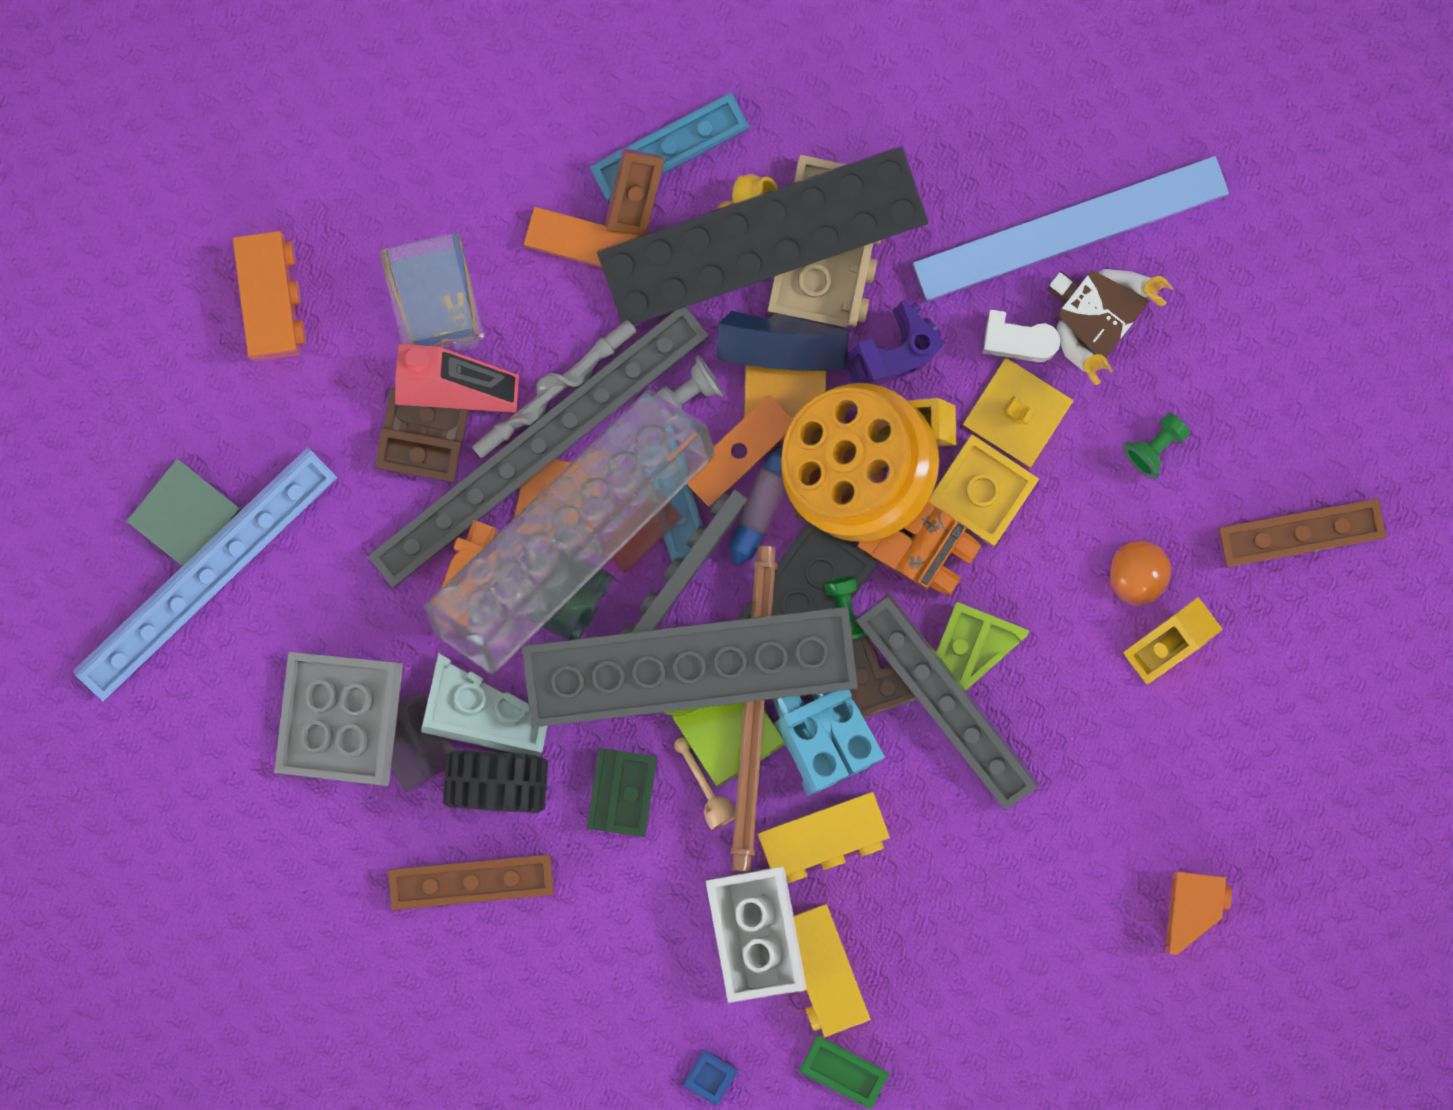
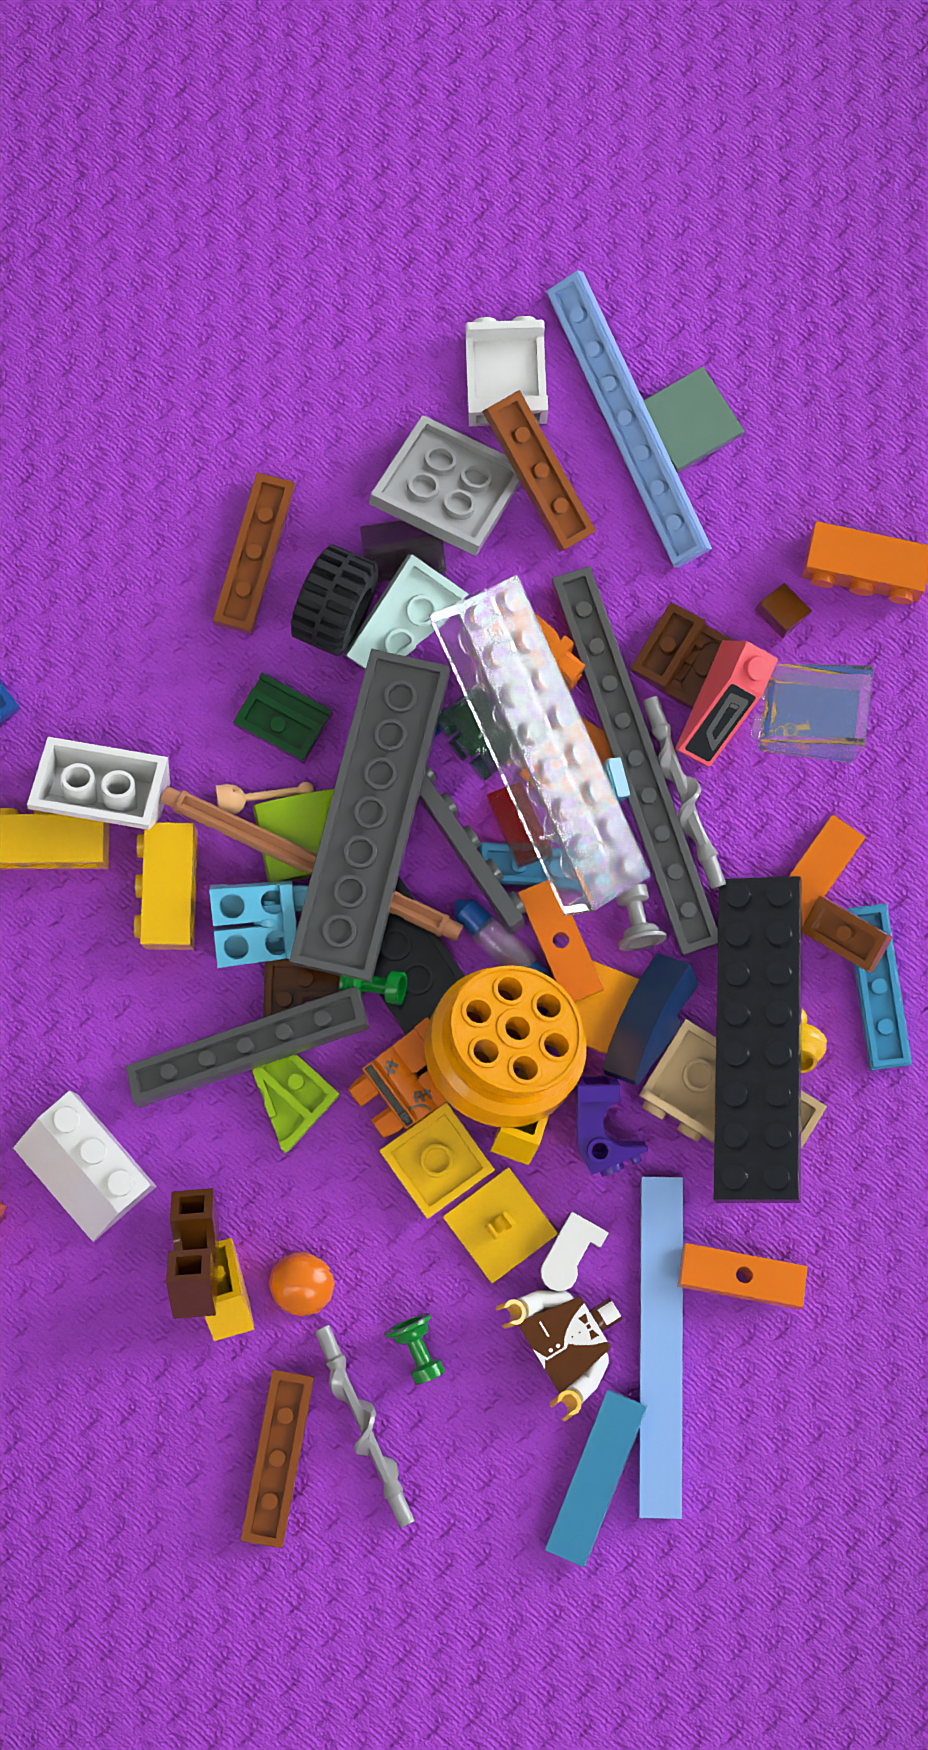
camera: 105 degrees right, 5 degrees down
(201, 708) = (505, 360): none -> white panel
(293, 637) = (539, 471): none -> dark orange plate
(341, 359) = (783, 610): none -> reddish brown slope
(566, 455) = (616, 776): none -> tile
(976, 155) = (767, 1279): none -> orange tile
(1111, 812) = (83, 1165): none -> white slope
(1154, 674) = (194, 1258): none -> reddish brown arch
(1209, 243) = (596, 1478): none -> dark azure tile
(1236, 468) = (364, 1416): none -> light grey piece

